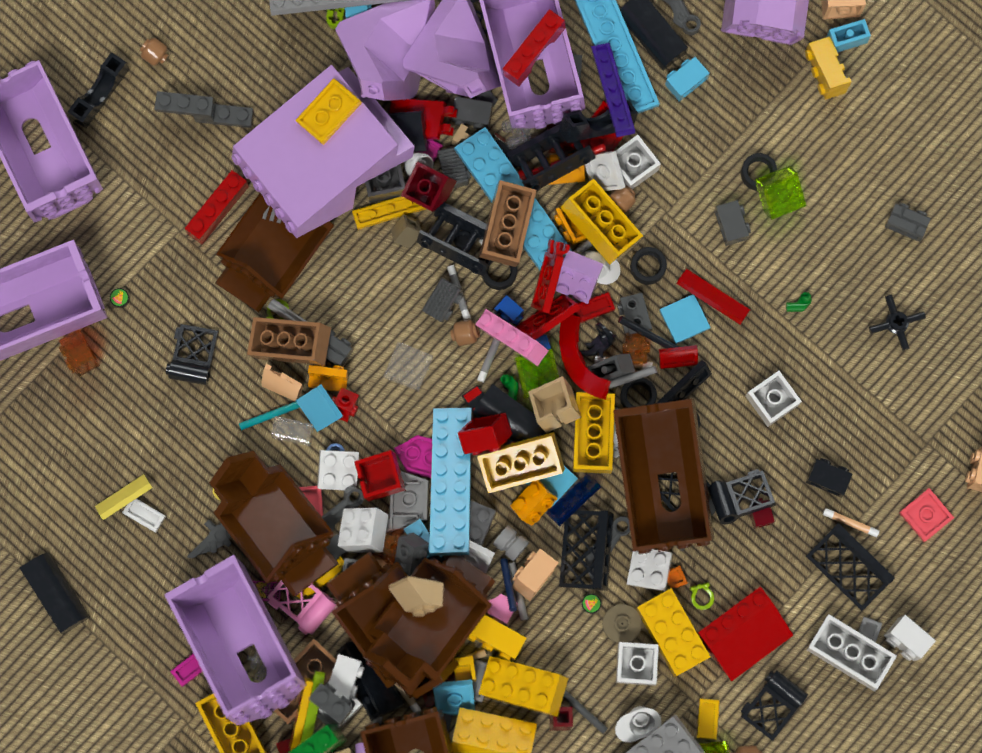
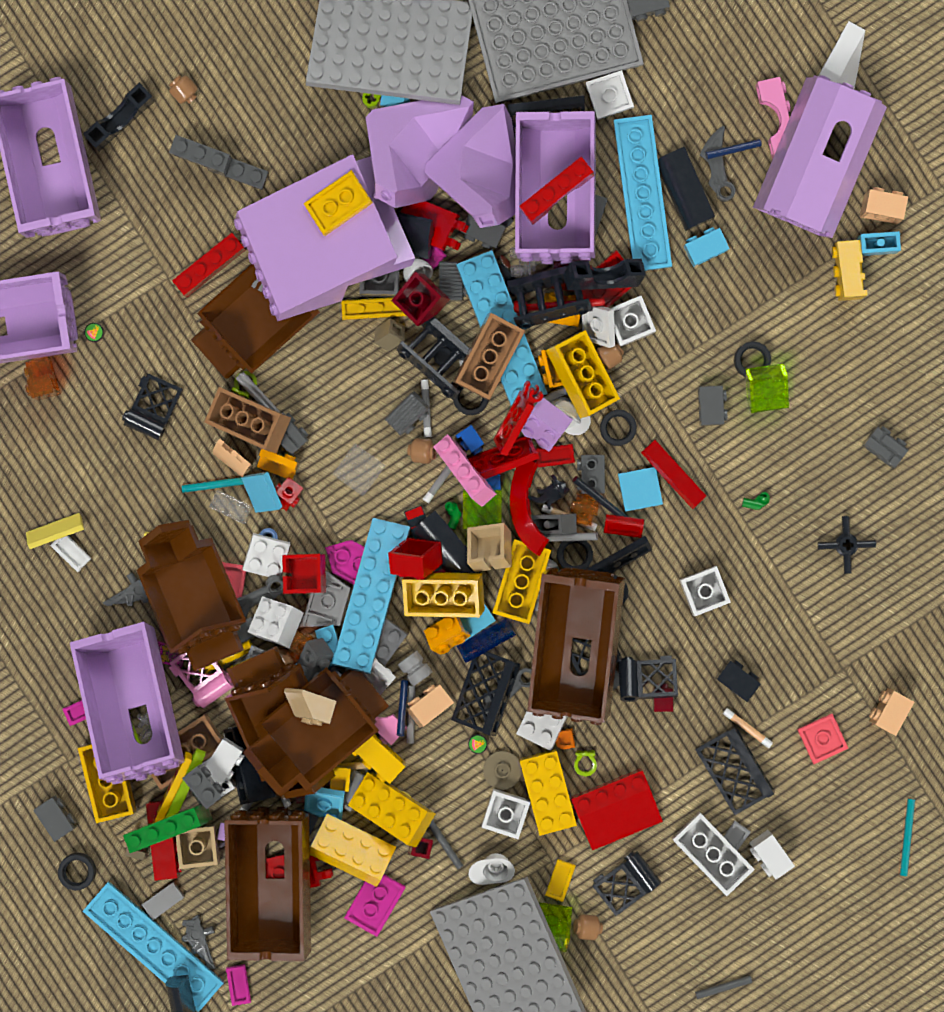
camera: 15 degrees right, 10 degrees up
(460, 135) = (467, 251): tan tile -> none
(613, 90) = (627, 245): dark purple tile -> none

